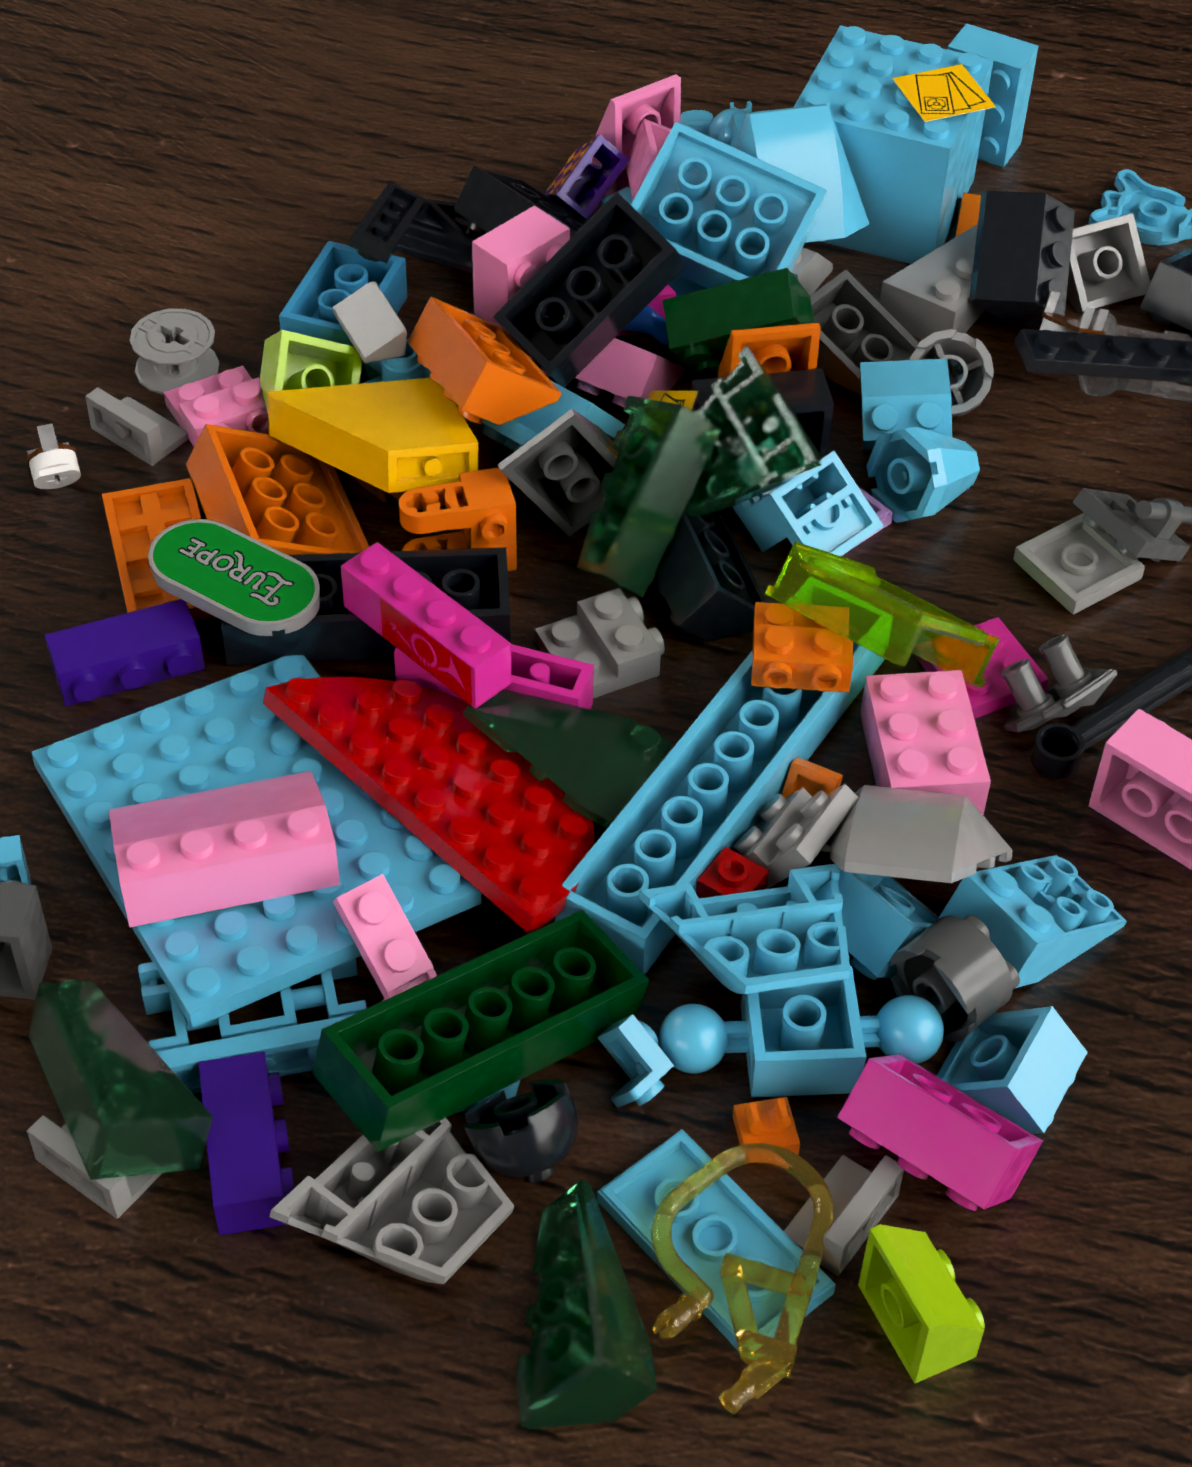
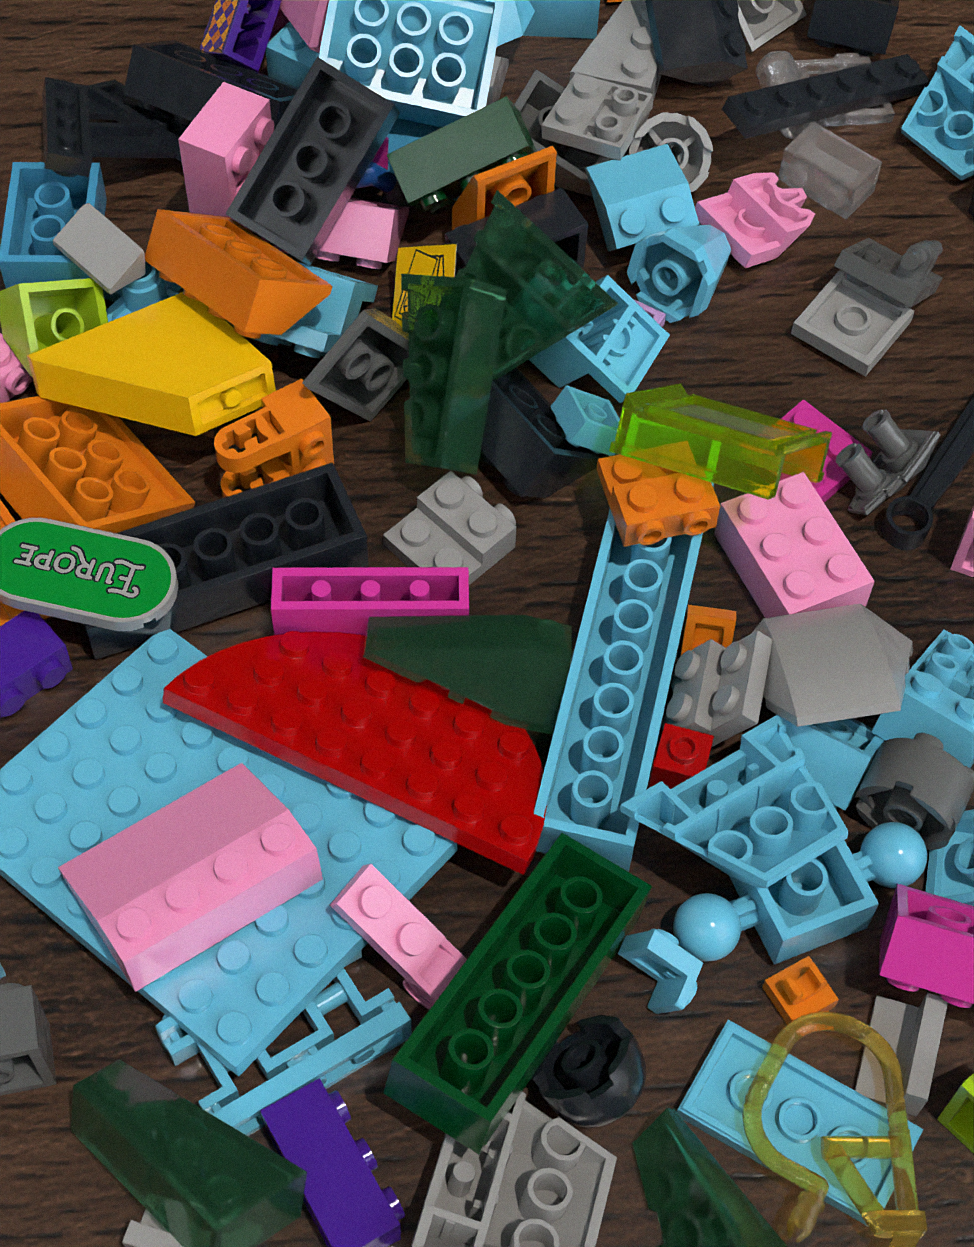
camera: 20 degrees left, 10 degrees up
(426, 625) = (298, 575): dark pink brick -> none
(760, 569) = (586, 419): none -> medium azure piece
(888, 321) = (597, 117): none -> light grey plate
(1019, 450) = (757, 217): none -> bright pink plate
(1061, 323) = (754, 78): piece -> none
(1112, 426) = (829, 170): none -> clear brick

